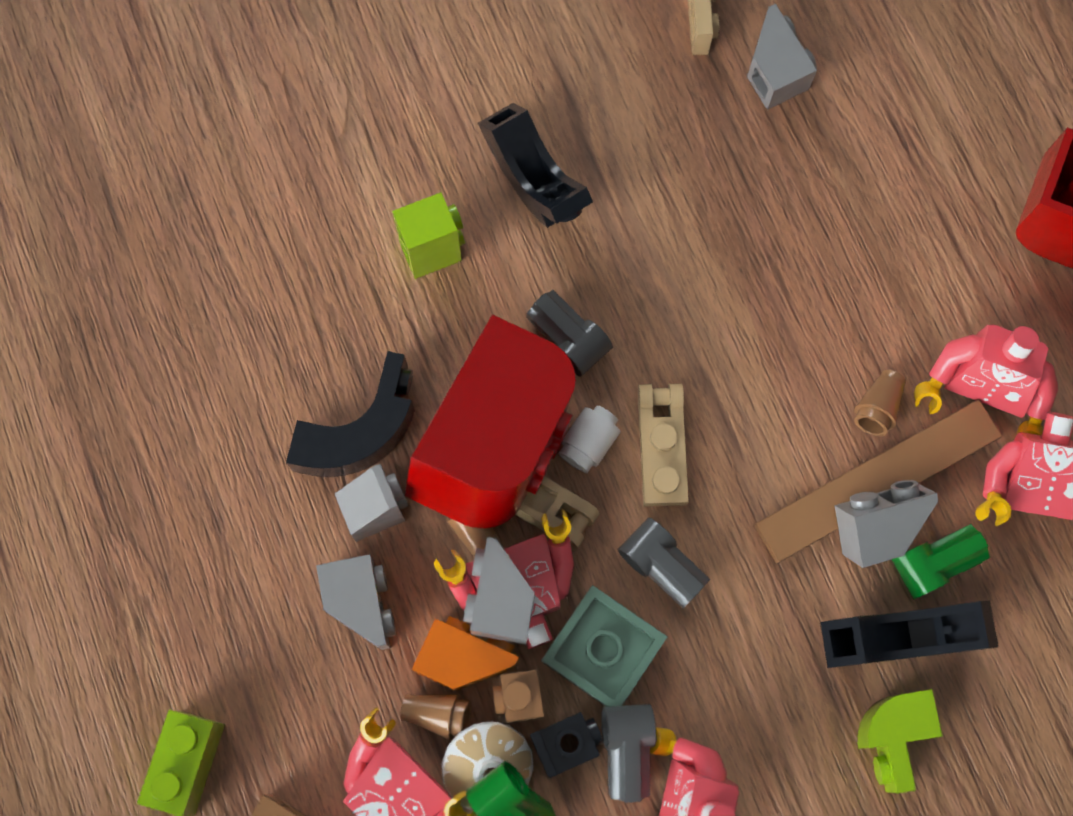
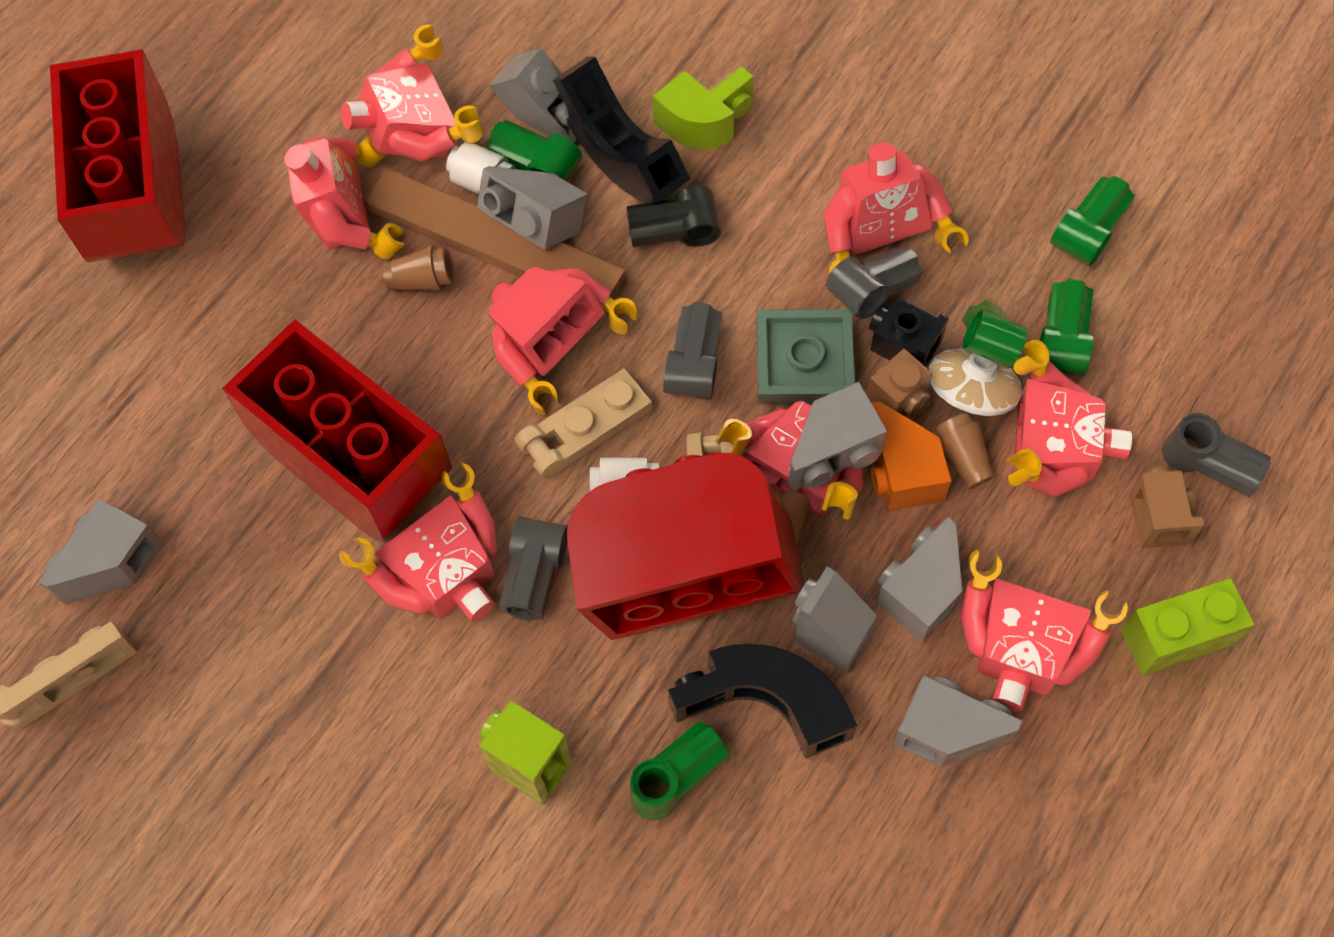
camera: 120 degrees left, 10 degrees down
(243, 534) = (951, 726): none -> light grey slope
(260, 641) = (1029, 636): none -> coral torso
(352, 334) = (678, 767): none -> green piece
(531, 169) = (374, 723): black arch -> none
(619, 268) = (438, 558): none -> coral torso
(755, 243) = (338, 430): none -> red brick
(766, 462) = (544, 319): none -> coral torso
(795, 643) = (686, 218): none -> pearl dark grey piece
(955, 507) = (467, 163): none -> white brick
(1011, 596) = (531, 95): none -> light grey slope

